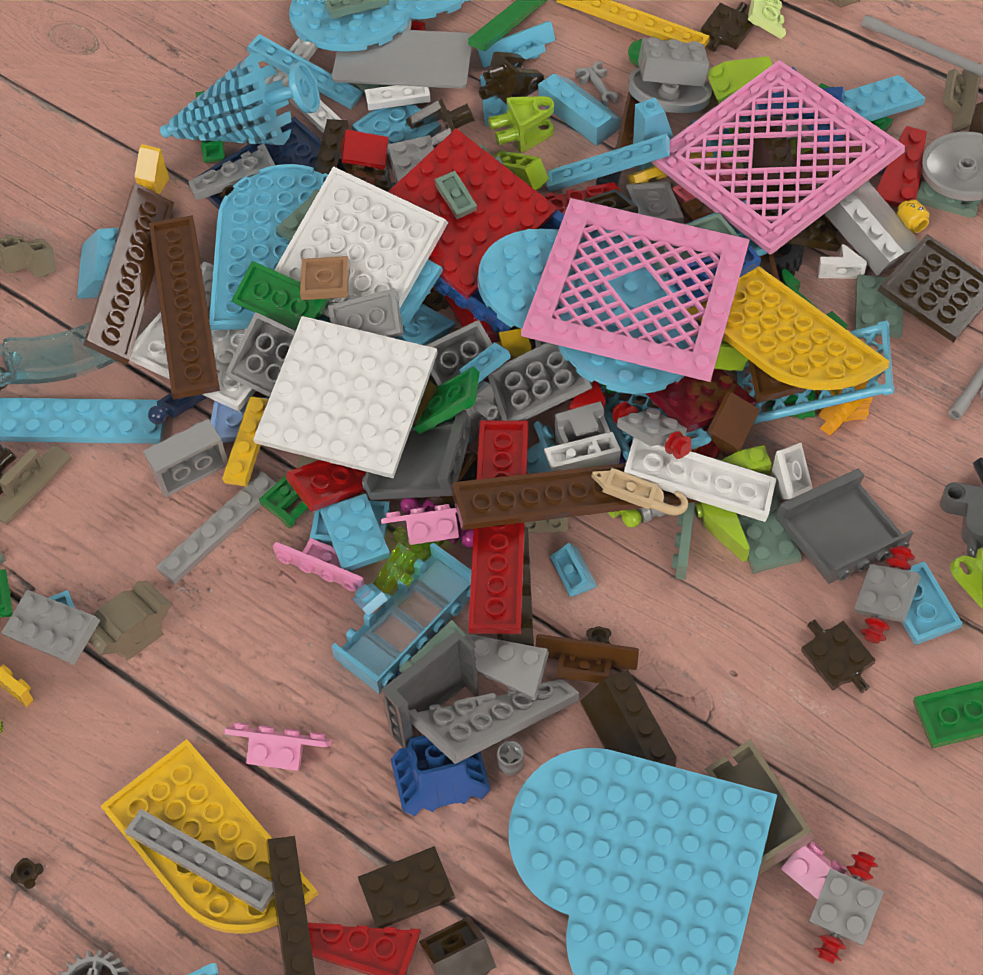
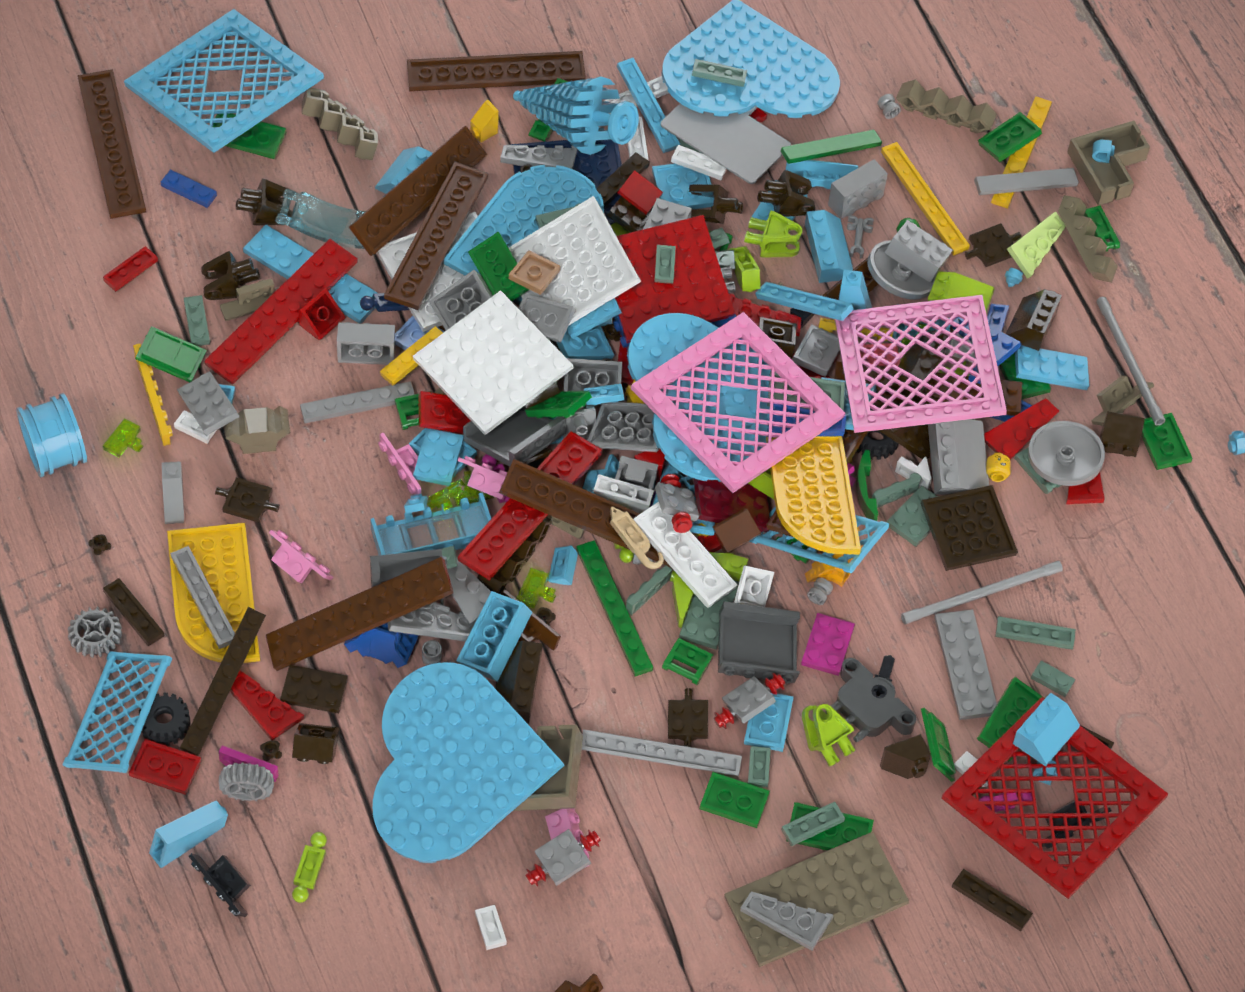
camera: 25 degrees right, 0 degrees up
(43, 665) = (189, 425): none -> white plate
(63, 481) = (279, 312): none -> red plate
(76, 755) = (173, 492): none -> light grey slope
(111, 457) = (320, 314): none -> red slope
(120, 123) = (494, 70): none -> reddish brown plate
(124, 931) = (133, 612): none -> dark brown plate
(170, 710) = (247, 499): none -> dark brown plate
(406, 766) = (359, 613): none -> reddish brown plate
(565, 614) = (534, 588): none -> clear neon green plate
(568, 40) = (857, 189): none -> light grey brick
(570, 694) = (494, 635): none -> medium azure slope
(664, 583) = (614, 608): none -> green plate
(771, 42) = (1013, 277): none -> medium azure plate
(785, 584) = (689, 655): none -> green plate
(829, 62) = (1034, 318): none -> dark brown slope
(841, 291) = (897, 490): none -> sand green plate
(845, 709) = (661, 752): none -> light grey plate
(854, 435) = (819, 592): none -> light grey wheel
(905, 486) = (827, 644): none -> dark pink plate
(953, 659) = (759, 766): none -> sand green plate

